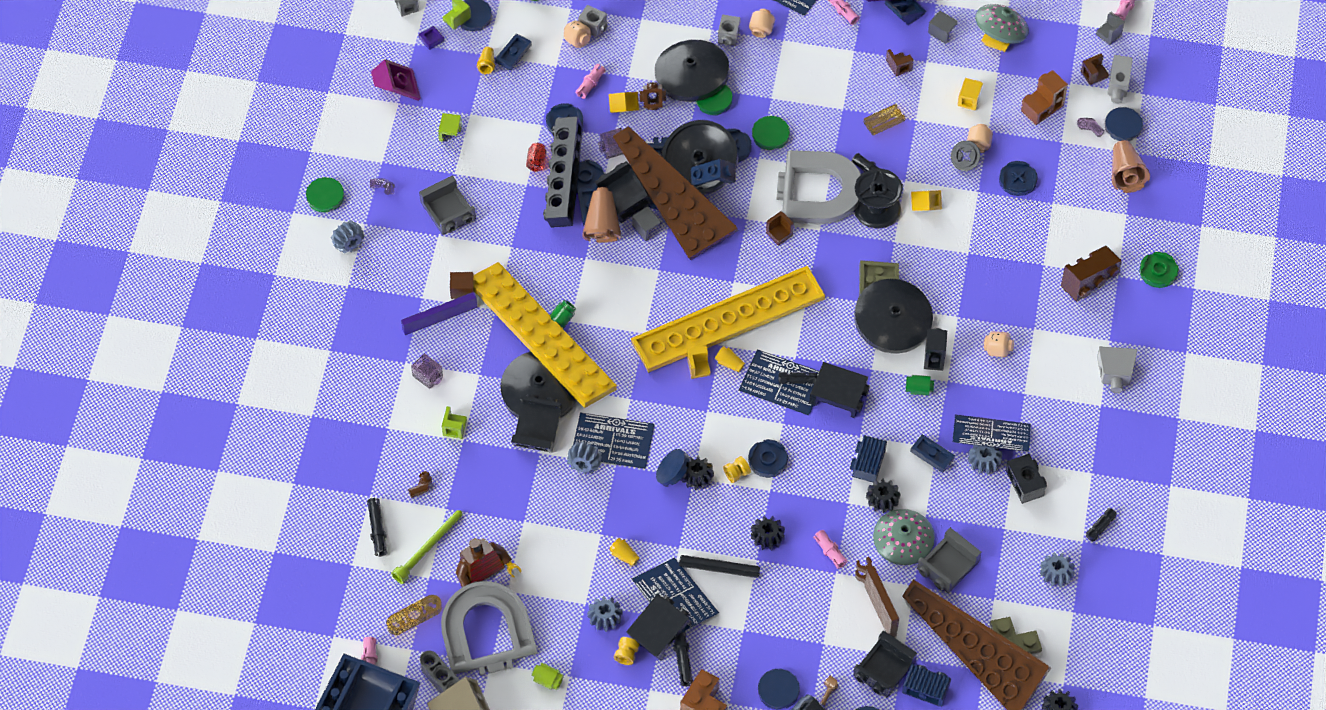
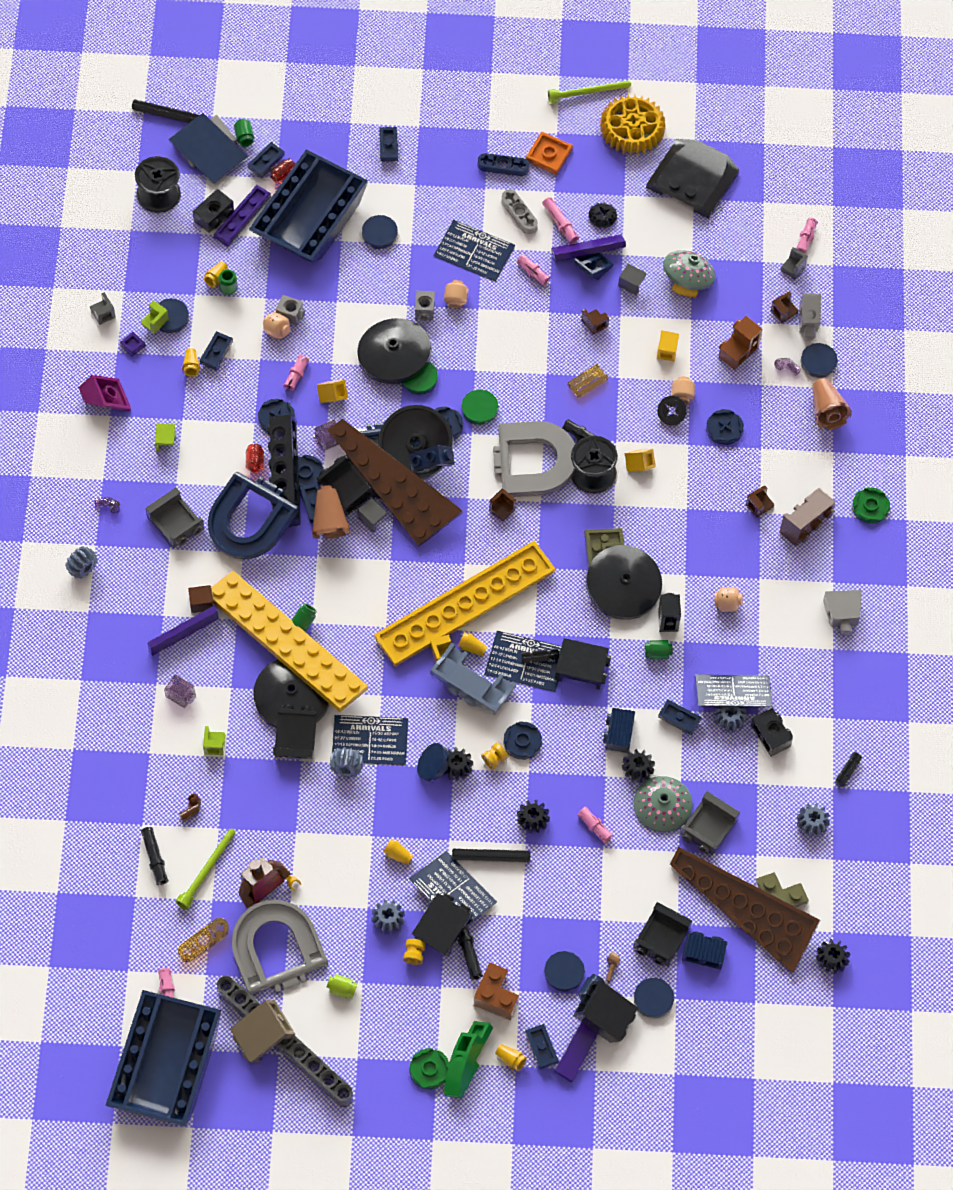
camera: 10 degrees left, 5 degrees up
(325, 194) = (51, 519): green tile -> none
(538, 230) = (269, 533): none -> dark blue piece
(655, 102) = (362, 388): reddish brown brick -> none
(720, 396) = (469, 684): none -> sand blue bracket
(878, 596) = (648, 868): reddish brown tile -> none
(1043, 253) = (759, 501): none -> reddish brown panel

